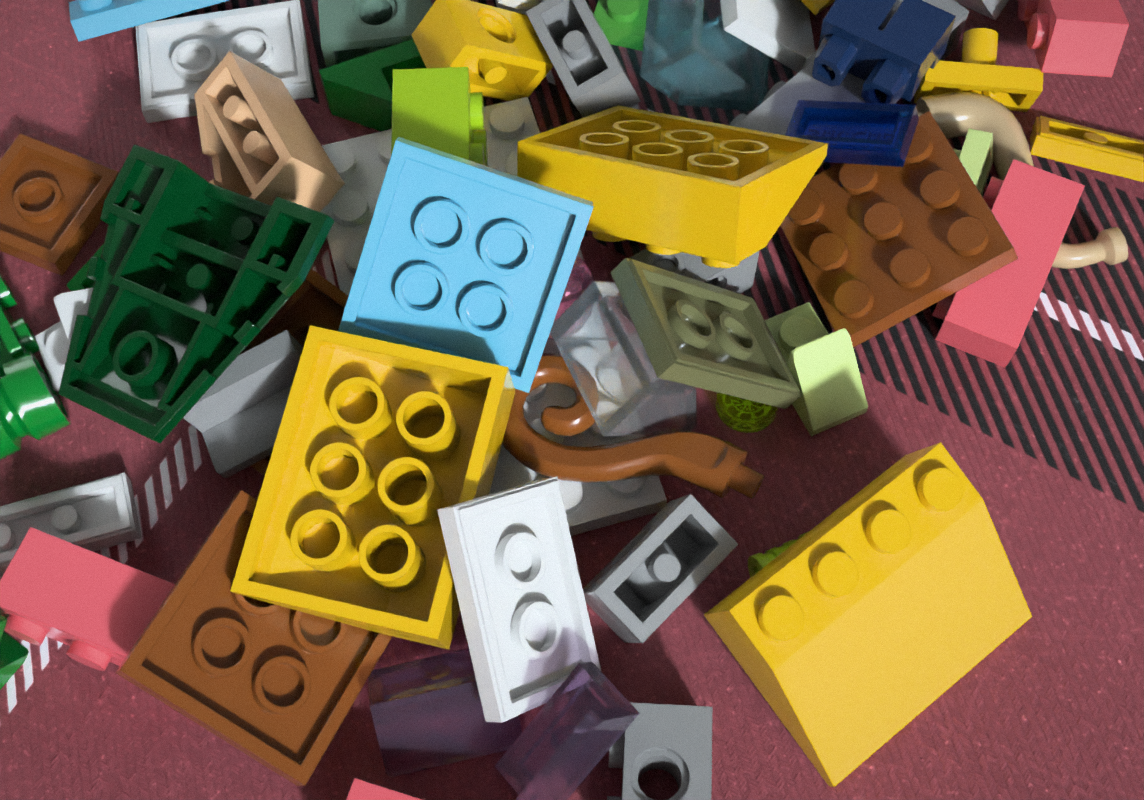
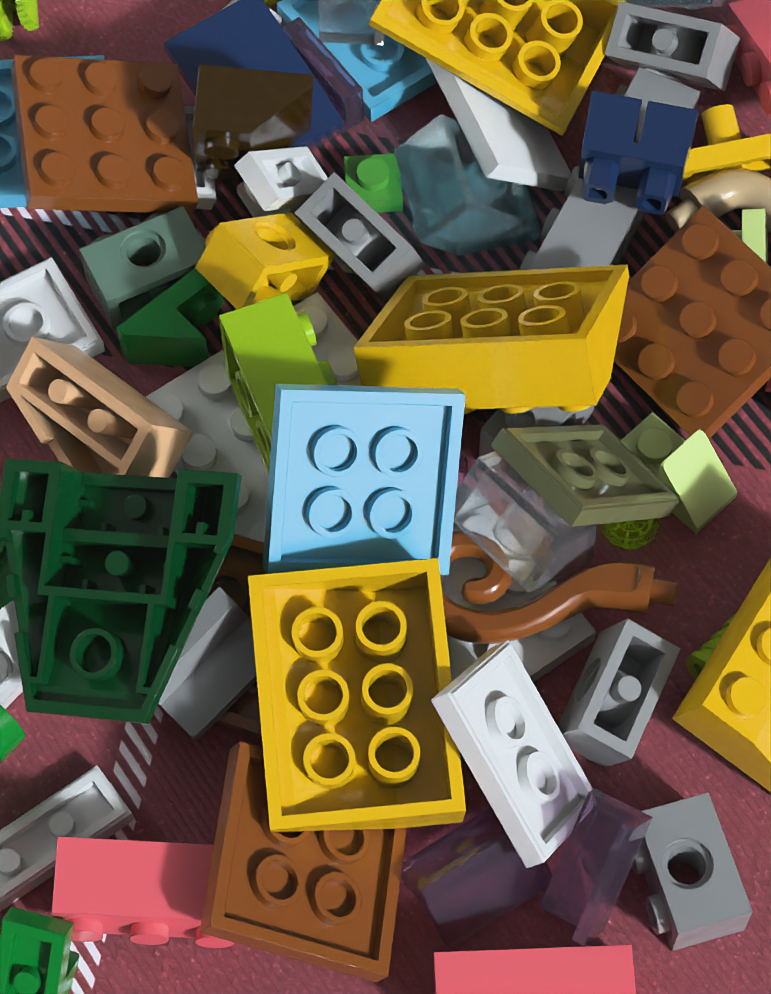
camera: 20 degrees left, 0 degrees up
(857, 130) = (644, 243): clear blue tile -> none

